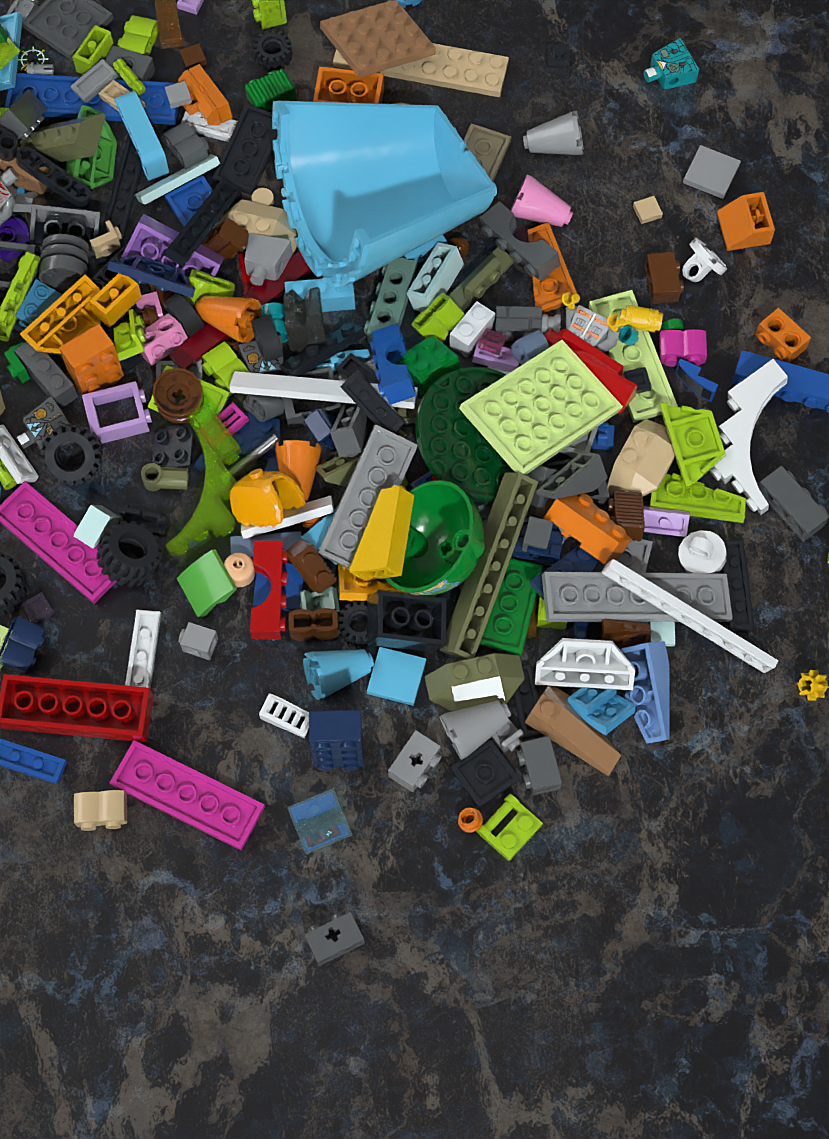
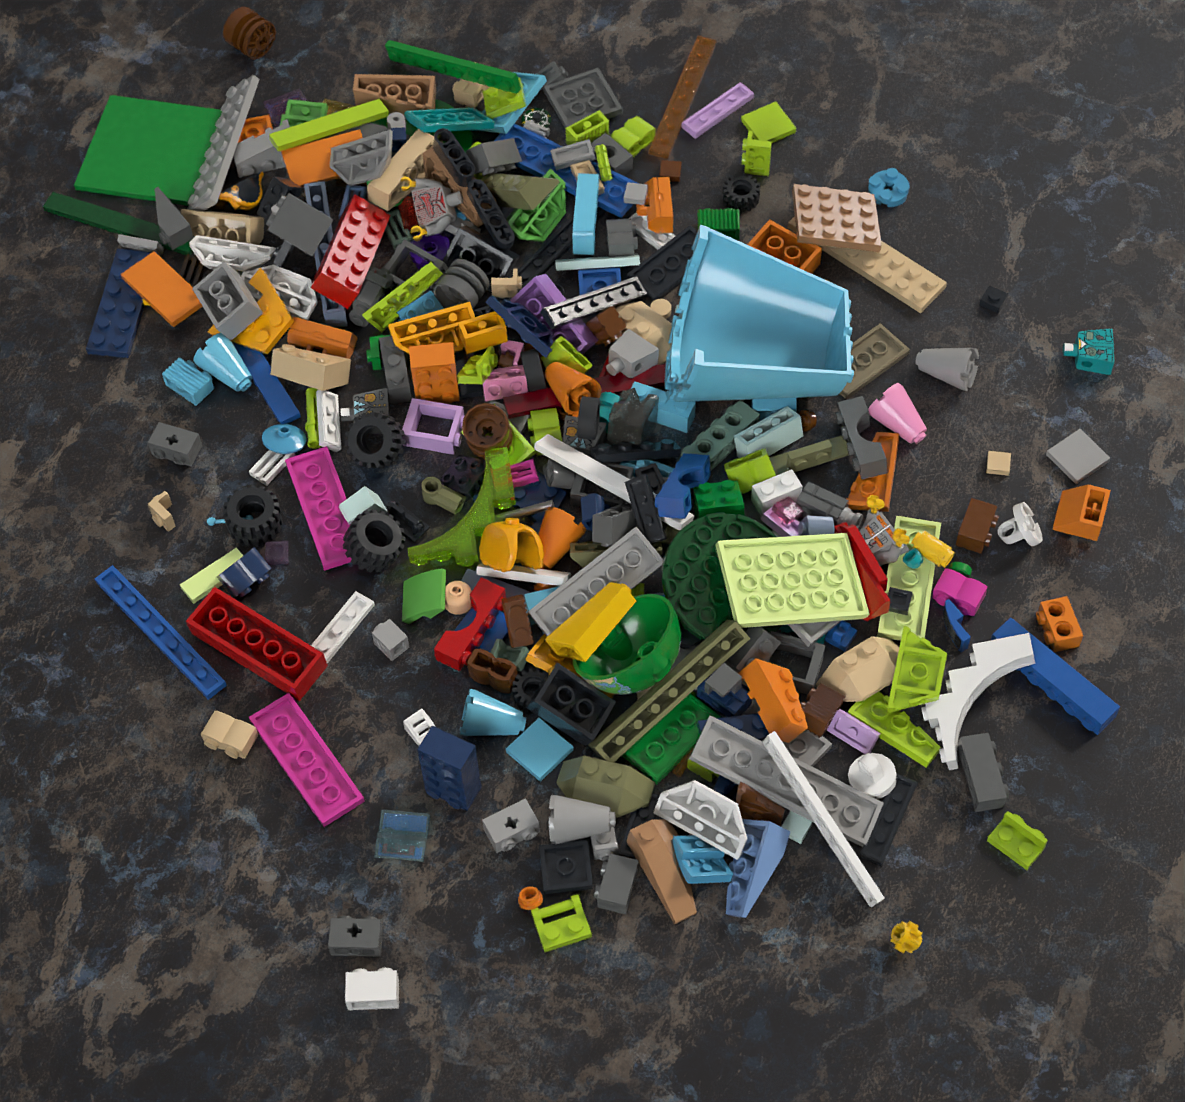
camera: 30 degrees right, 10 degrees down
(378, 979) = (372, 989): none -> white brick
(579, 476) = (791, 652): dark grey slope -> none

